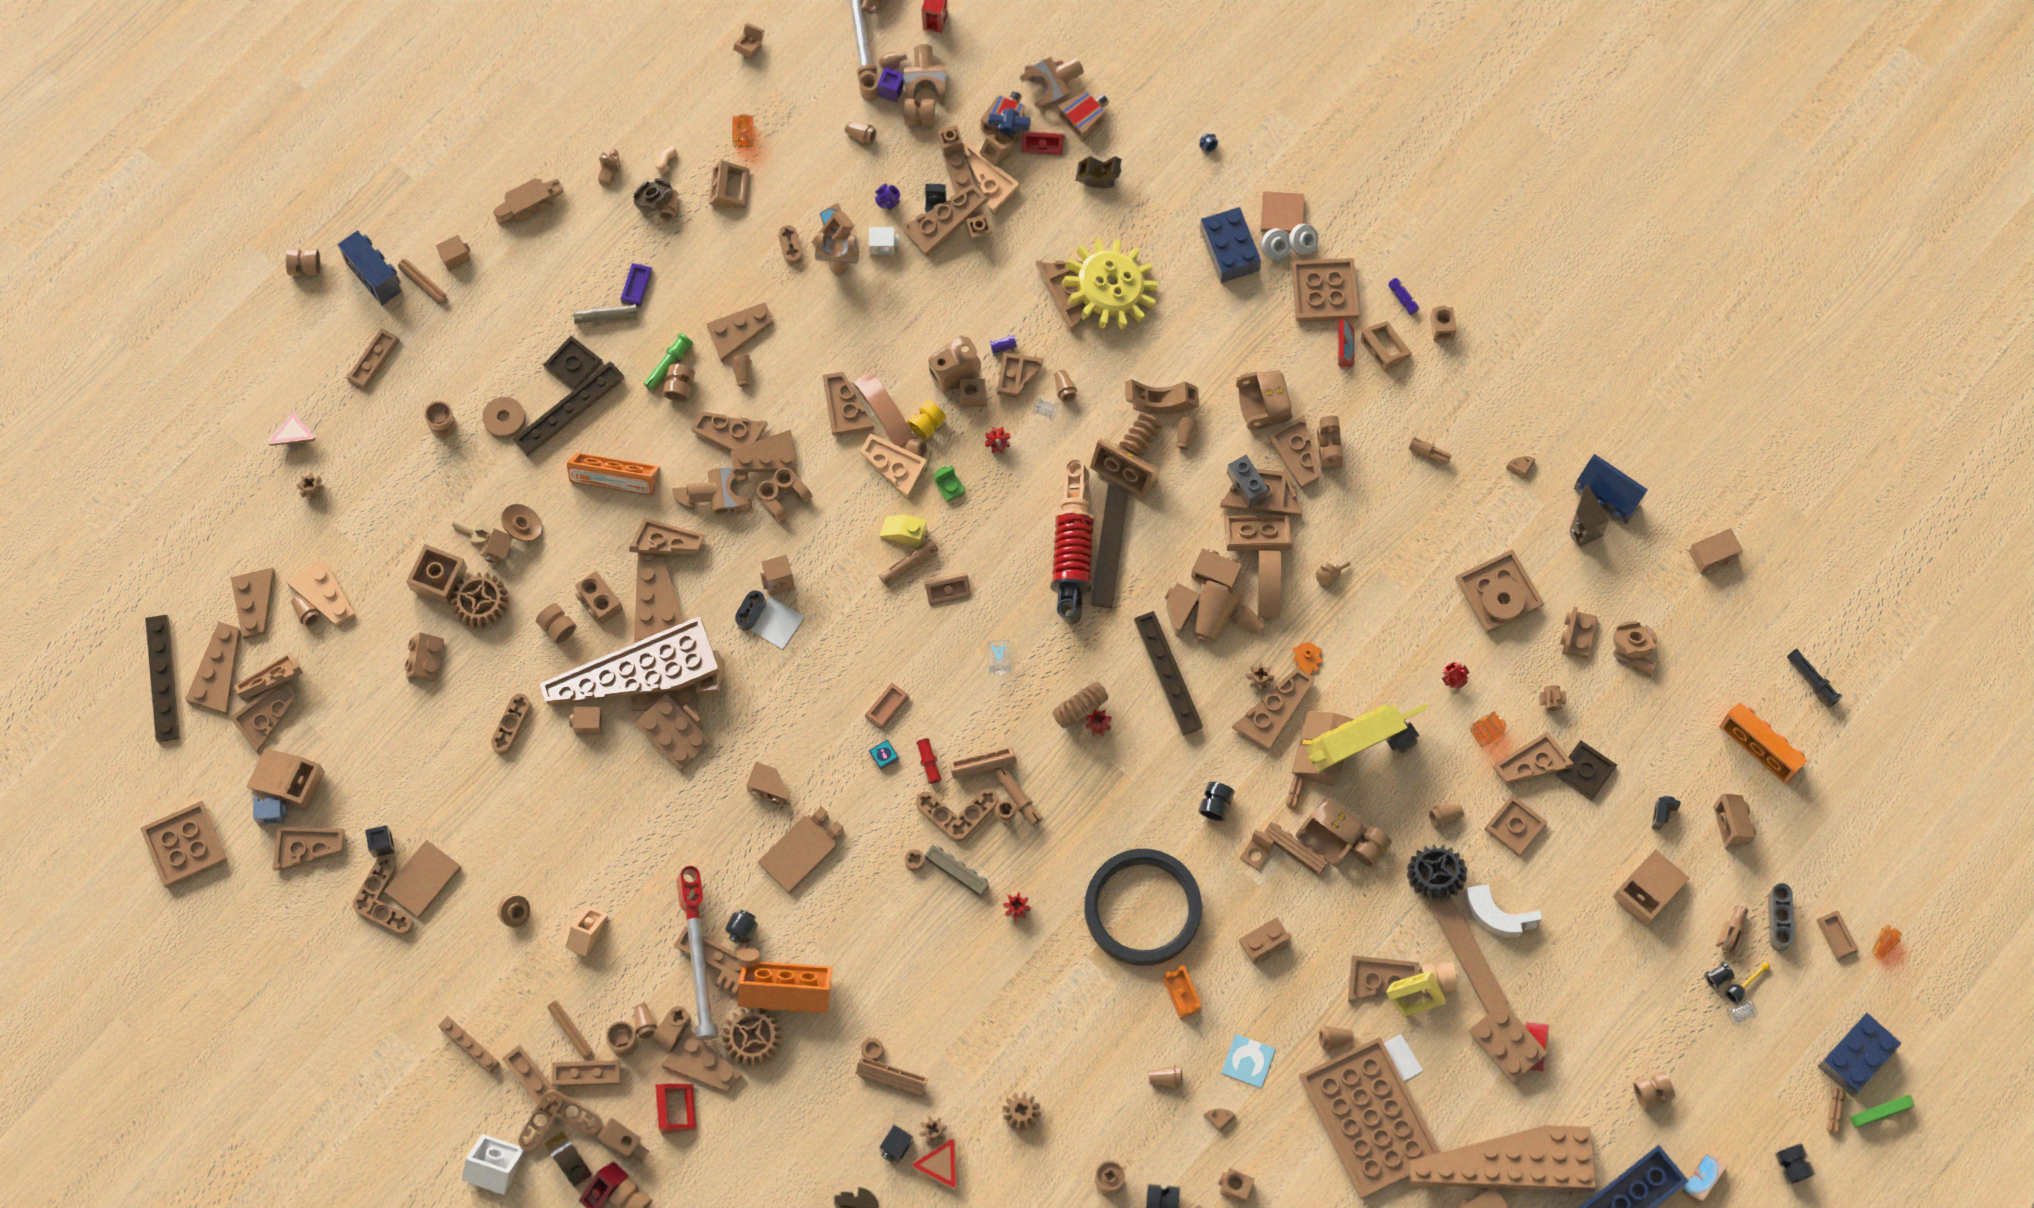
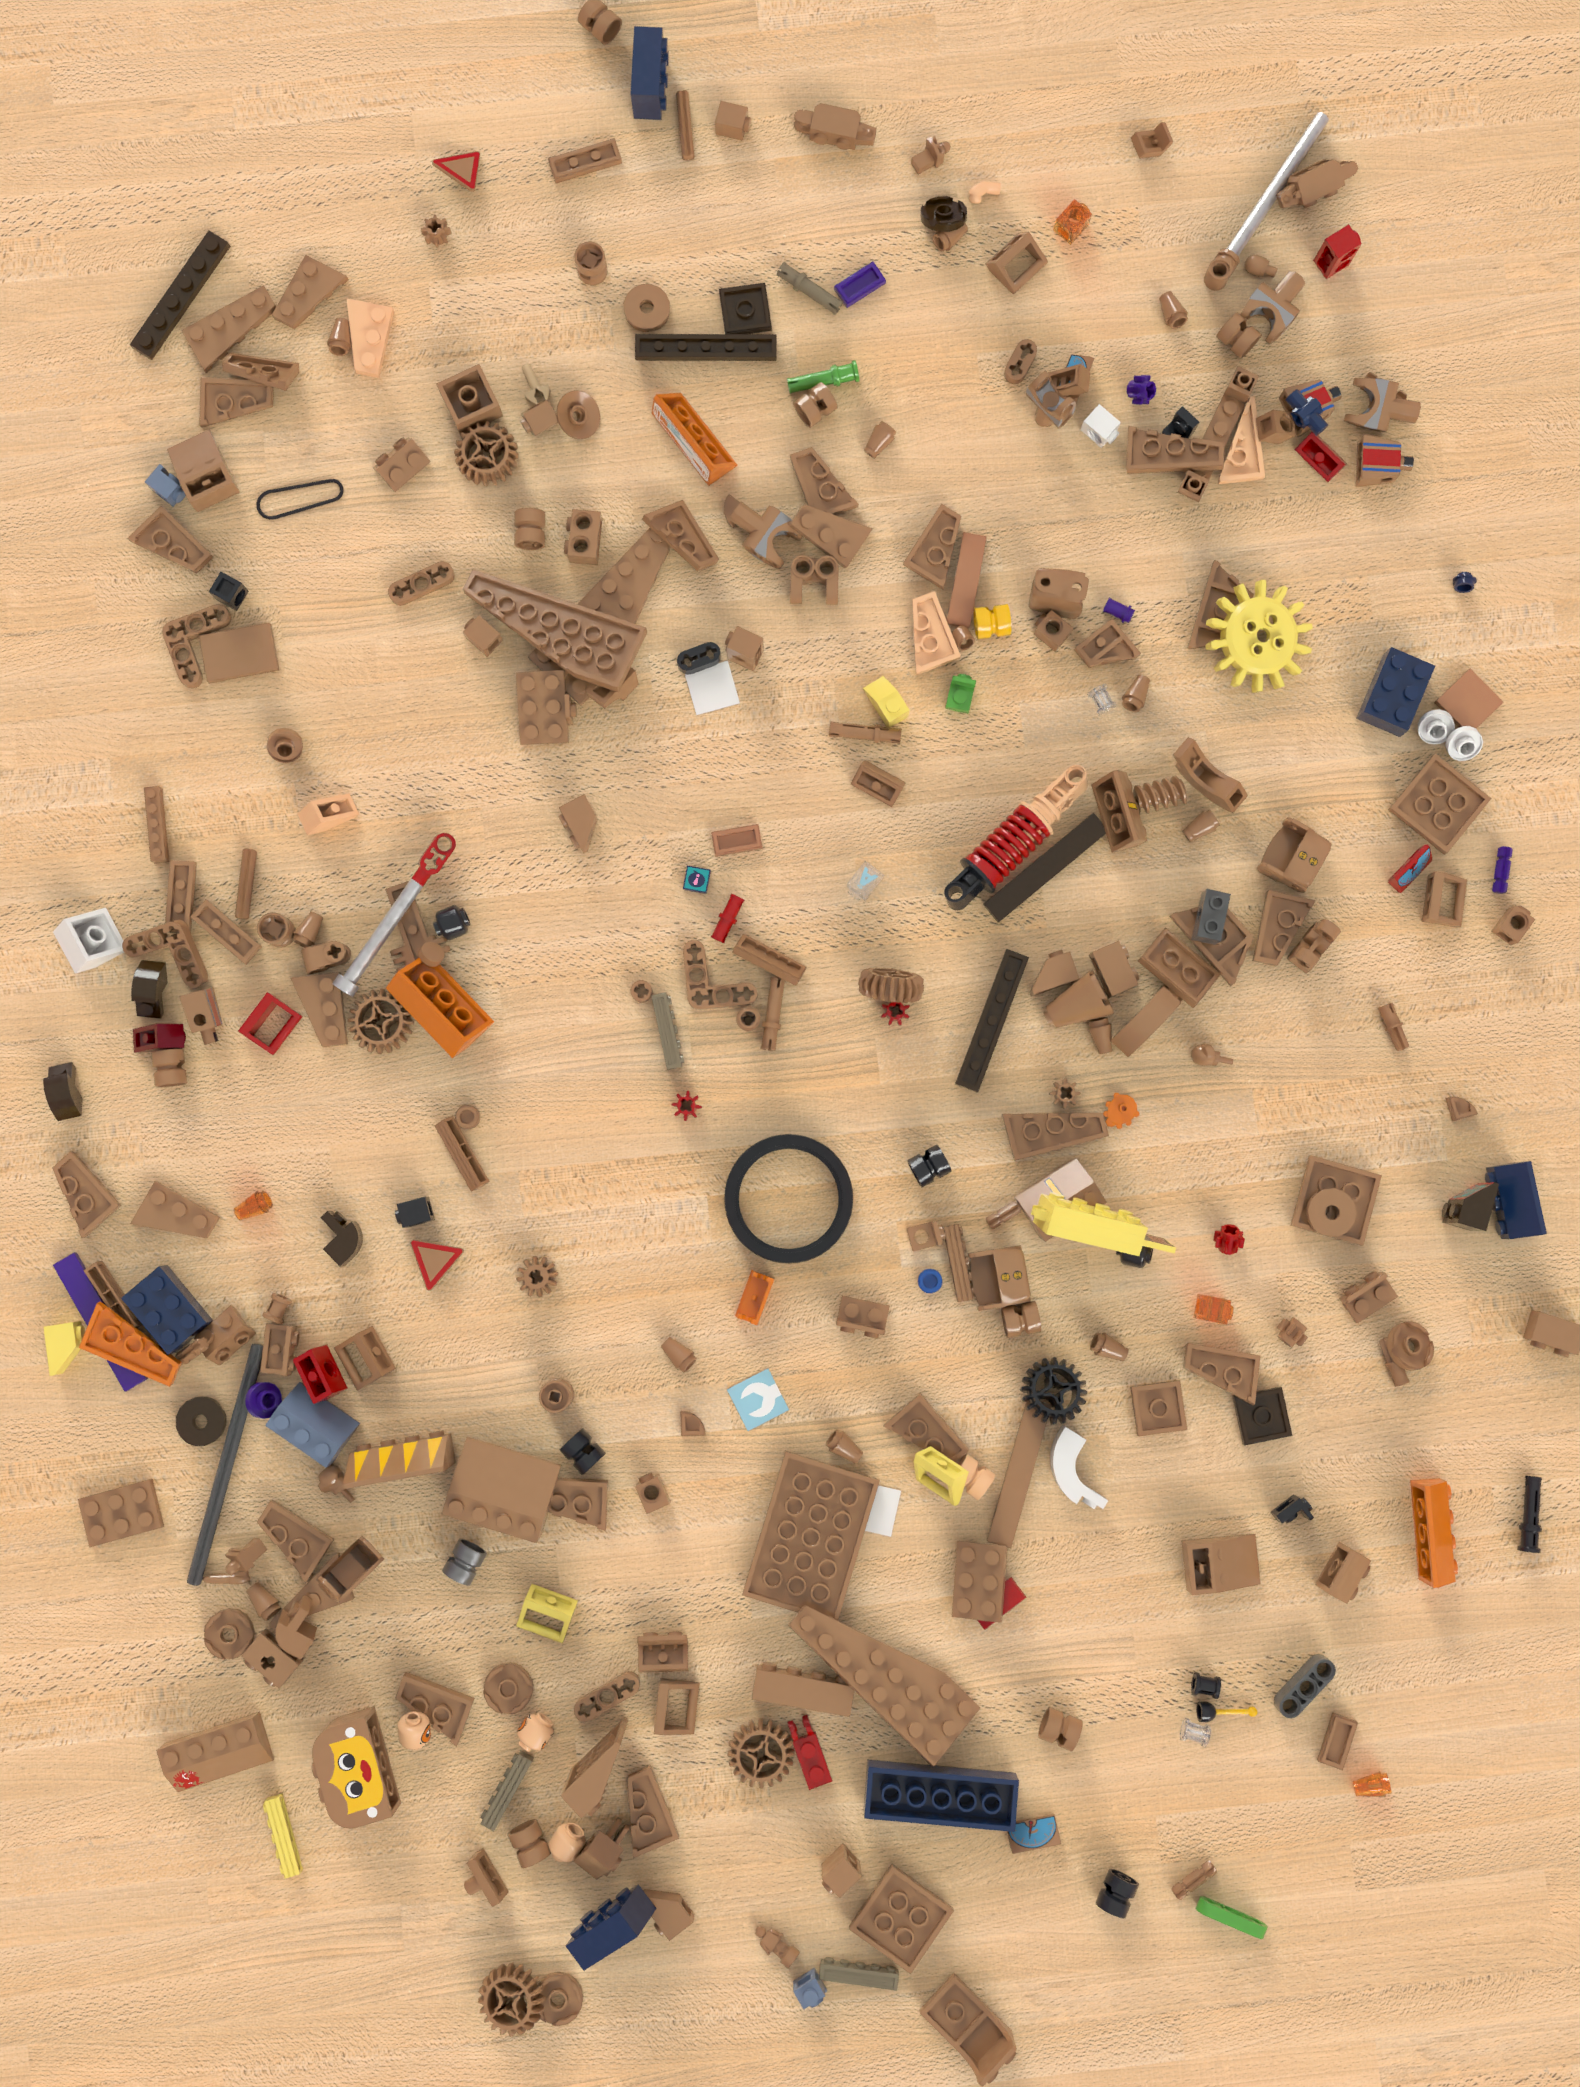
camera: 40 degrees right, 15 degrees up
(183, 844) = (77, 454): medium nougat plate -> none
(378, 748) = (296, 487): none -> black piece
(735, 329) = (909, 398): medium nougat wing -> none
(801, 850) = (557, 900): medium nougat tile -> none
(890, 84) = (1236, 288): dark purple brick -> none
(931, 1124) = (447, 1224): medium nougat gear -> none
(994, 434) = (1035, 691): red gear -> none
(1098, 173) = (1342, 527): dark brown brick -> none
(1288, 878) = (929, 1280): none -> blue tile
(1733, 931) = (1252, 1660): medium nougat arm -> none
(1859, 1054) = (1258, 1856): dark blue brick -> none

